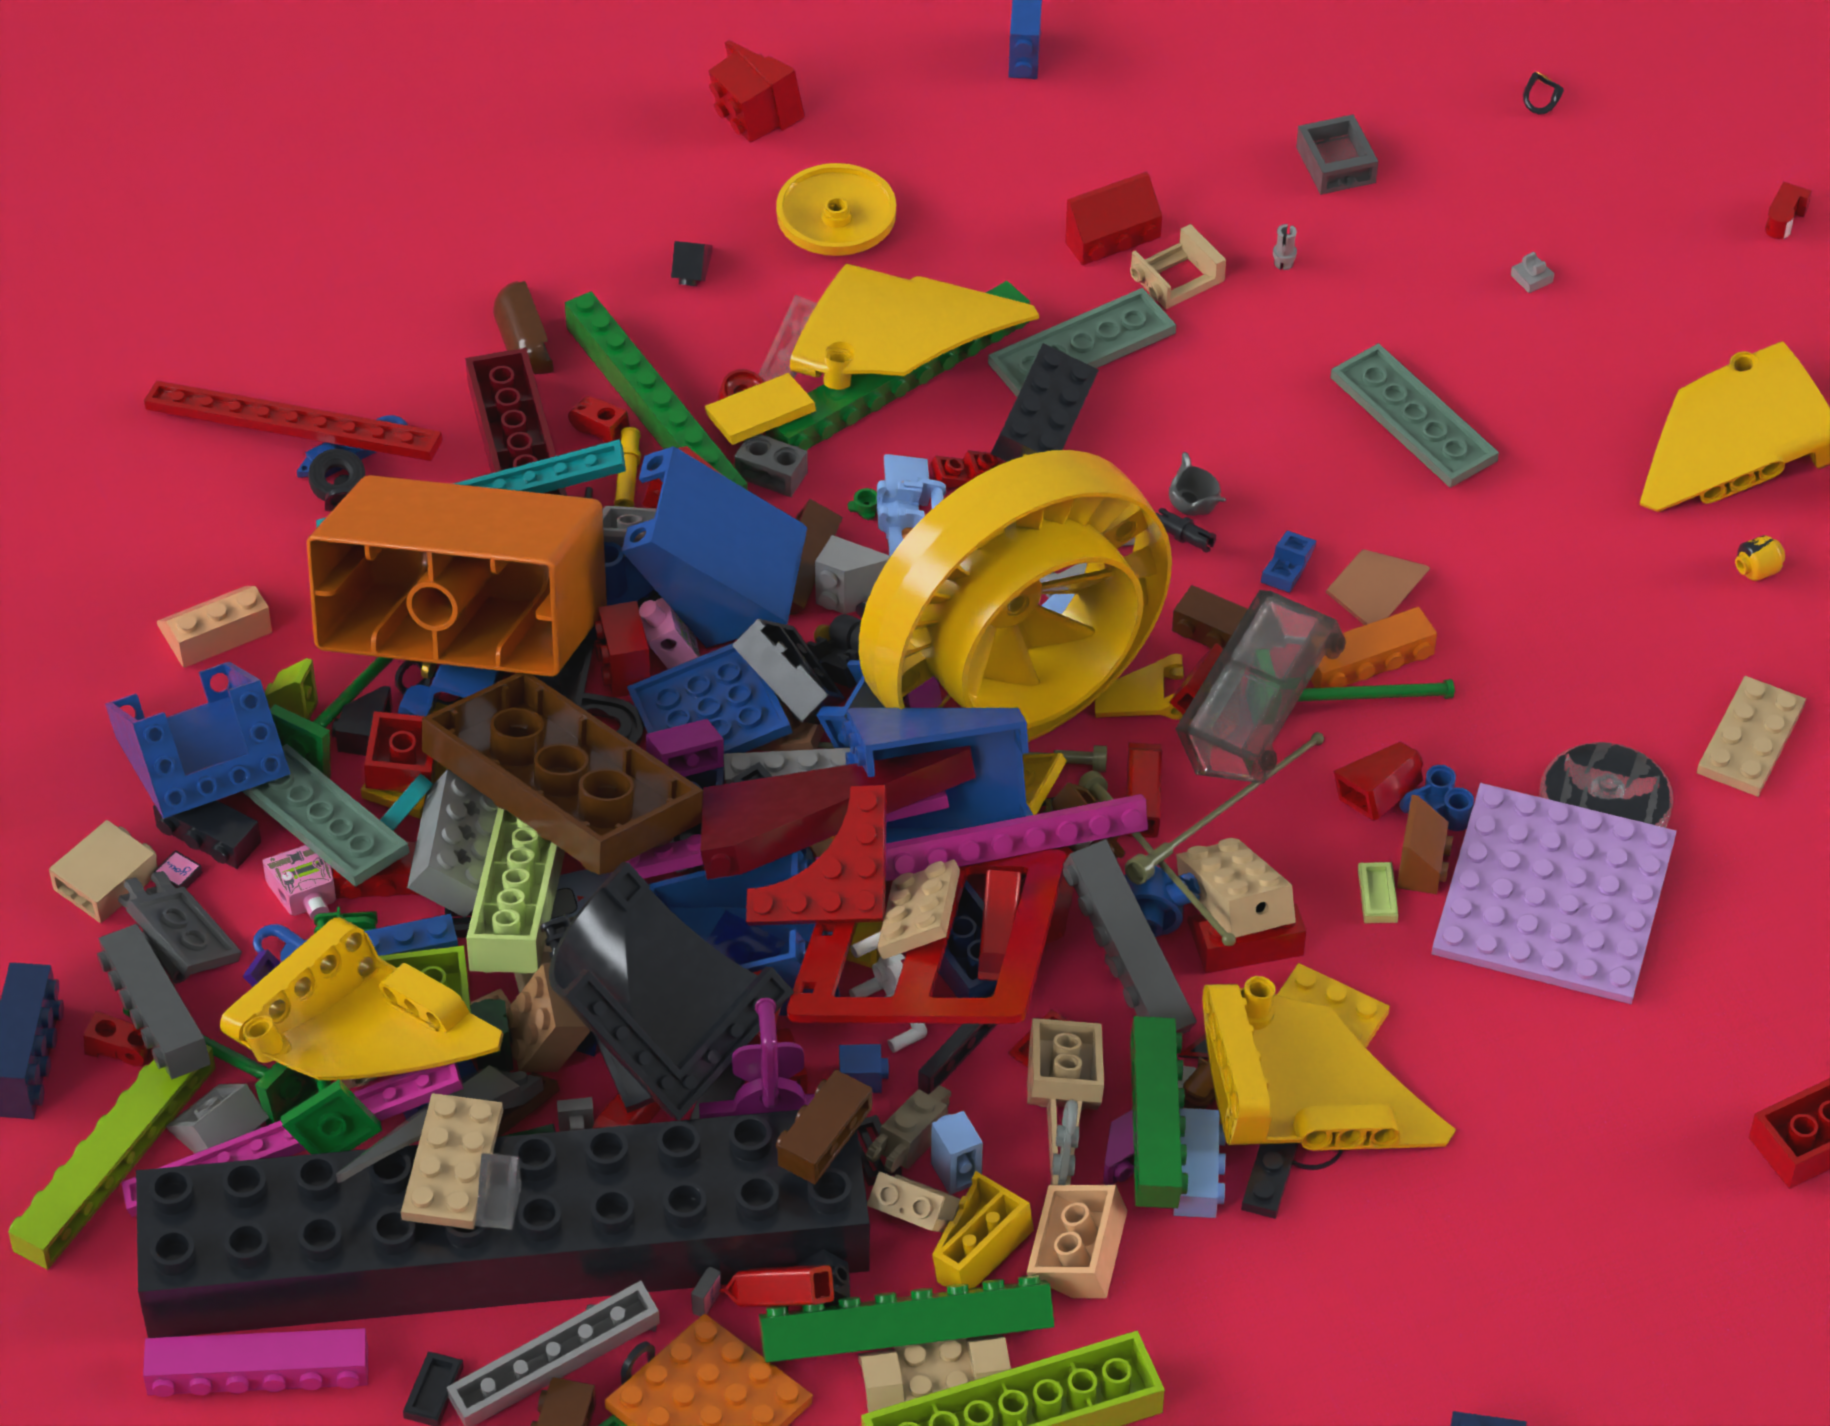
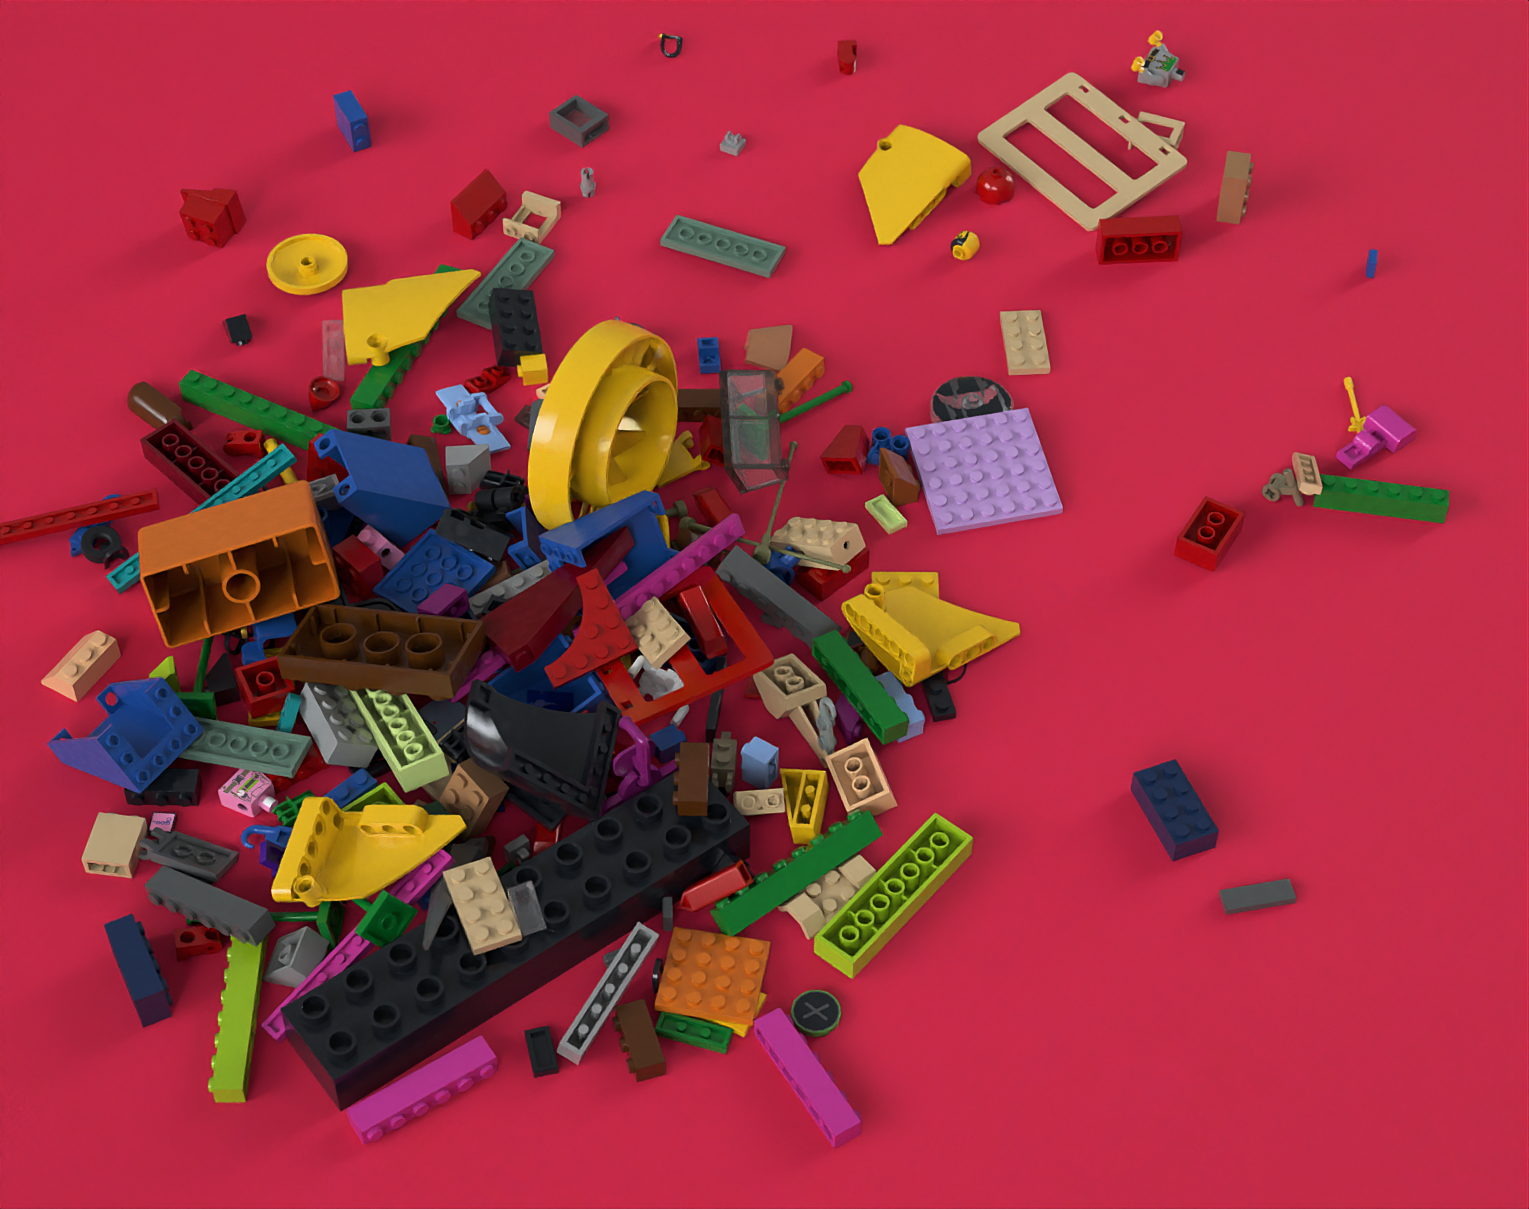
camera: 30 degrees left, 0 degrees up
(760, 408) = (344, 394): yellow tile -> none

